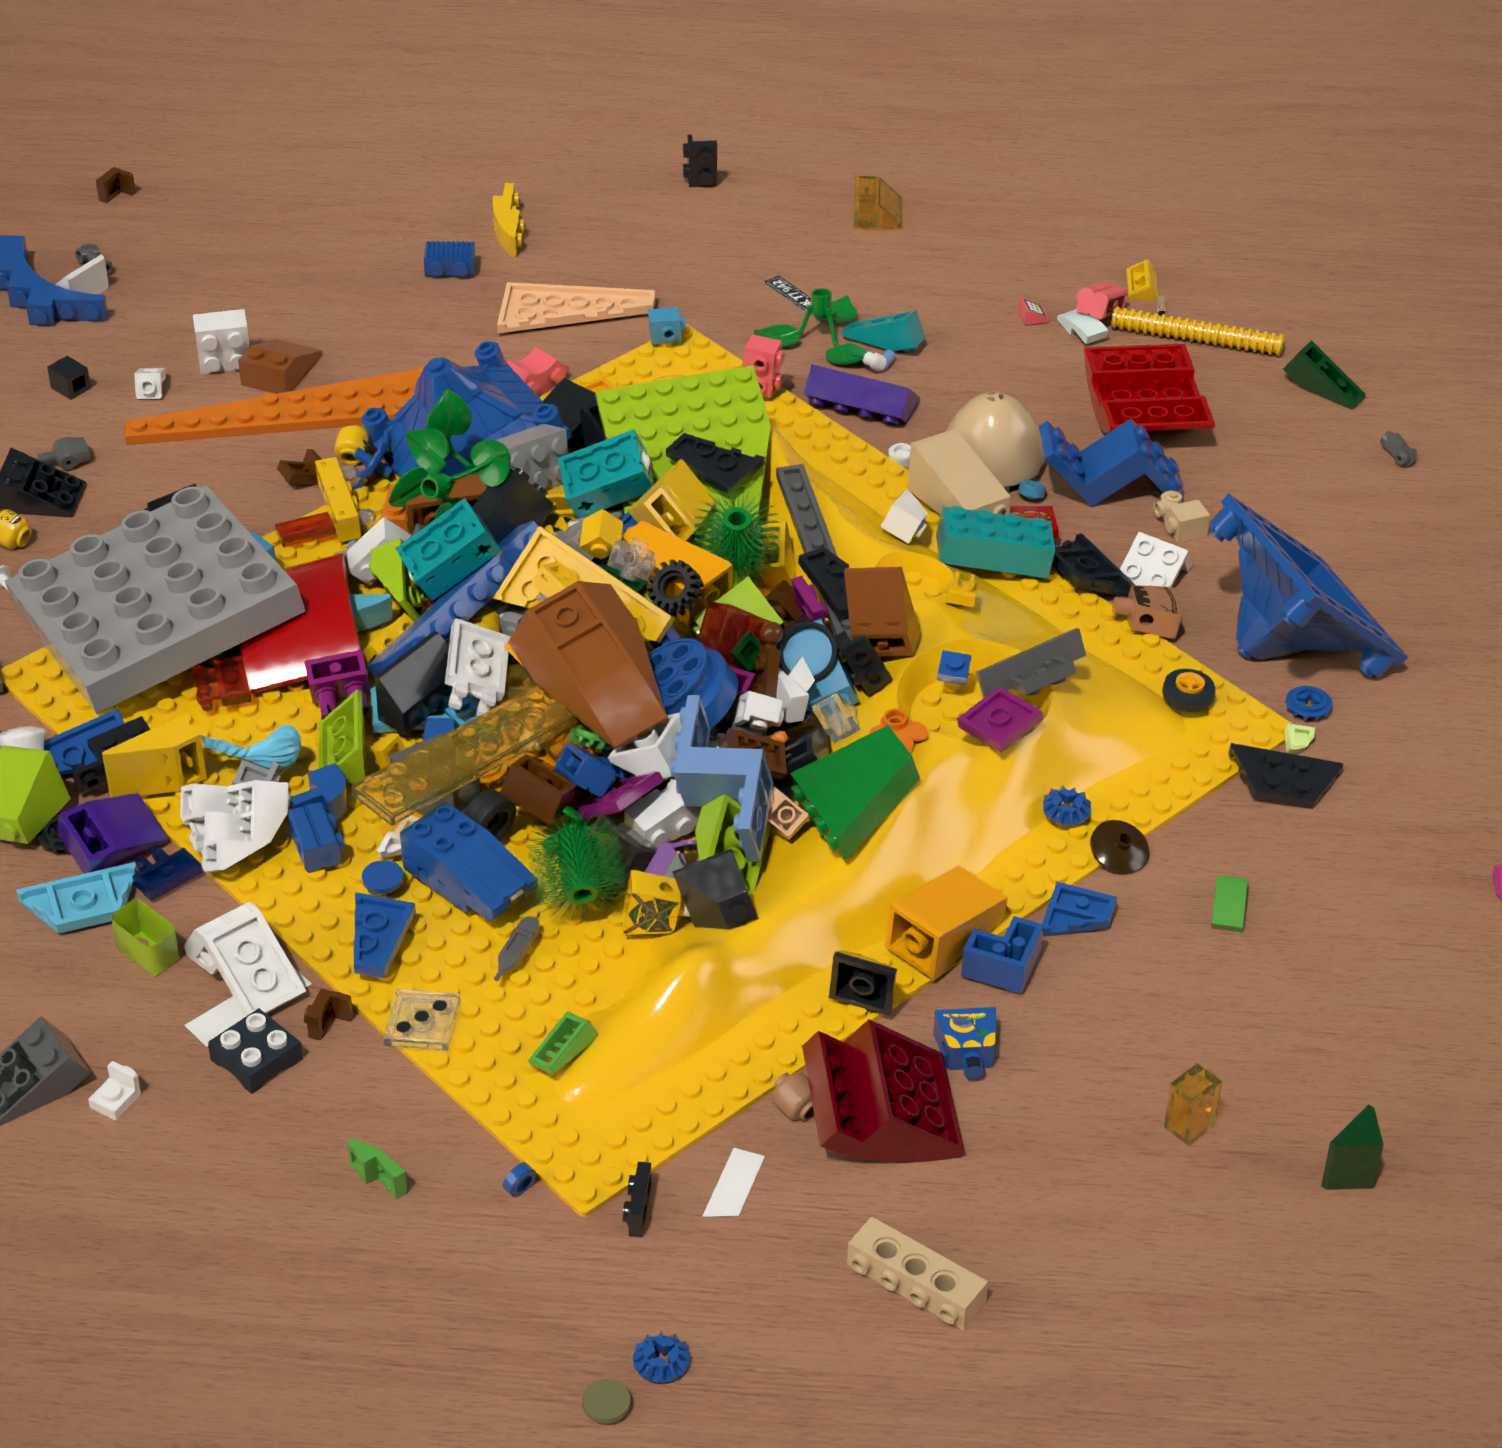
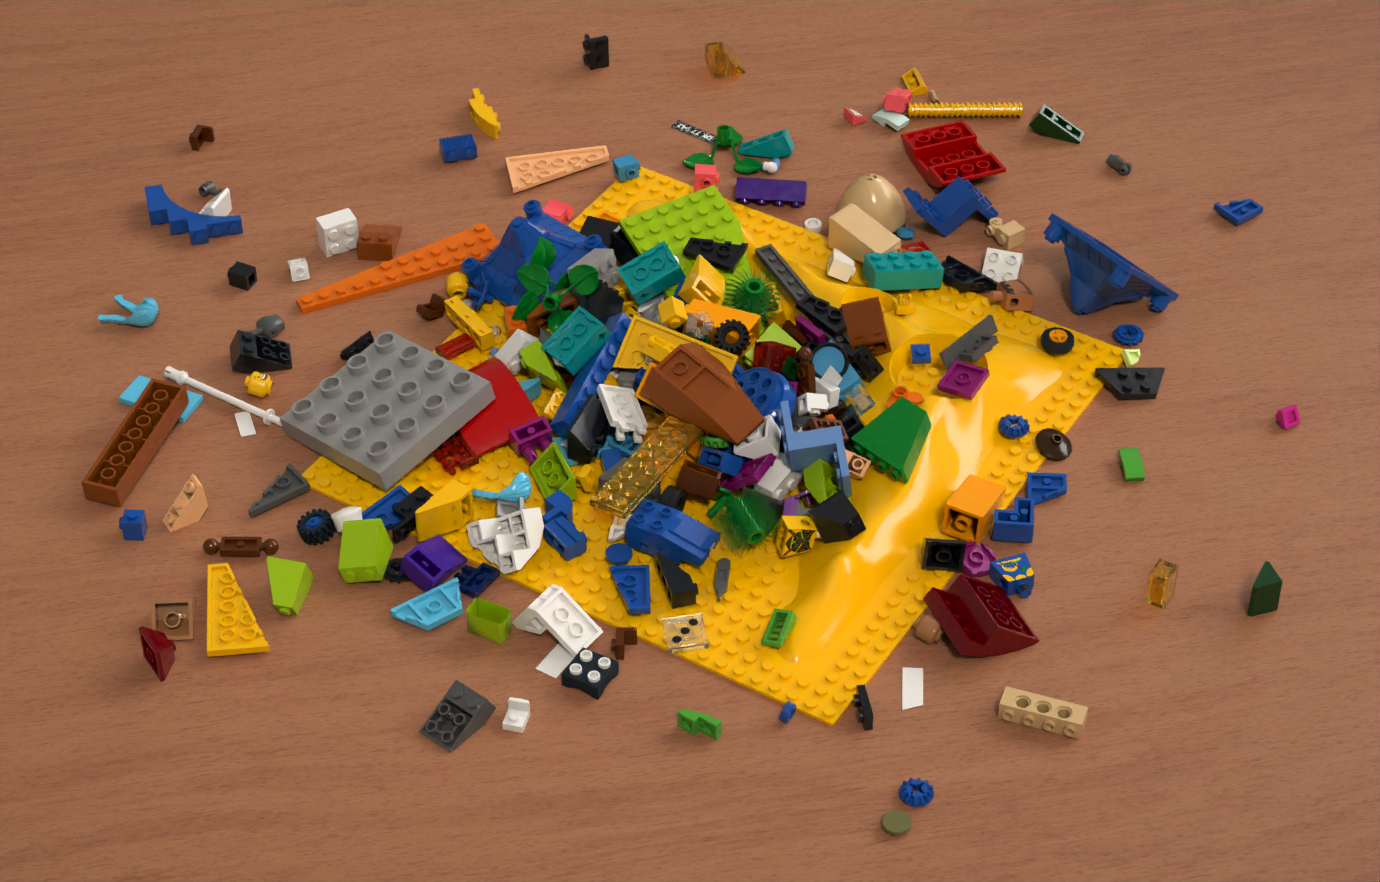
camera: 15 degrees left, 0 degrees up
(442, 941) = (676, 582): none -> black slope
(918, 998) = (977, 559): none -> magenta tile

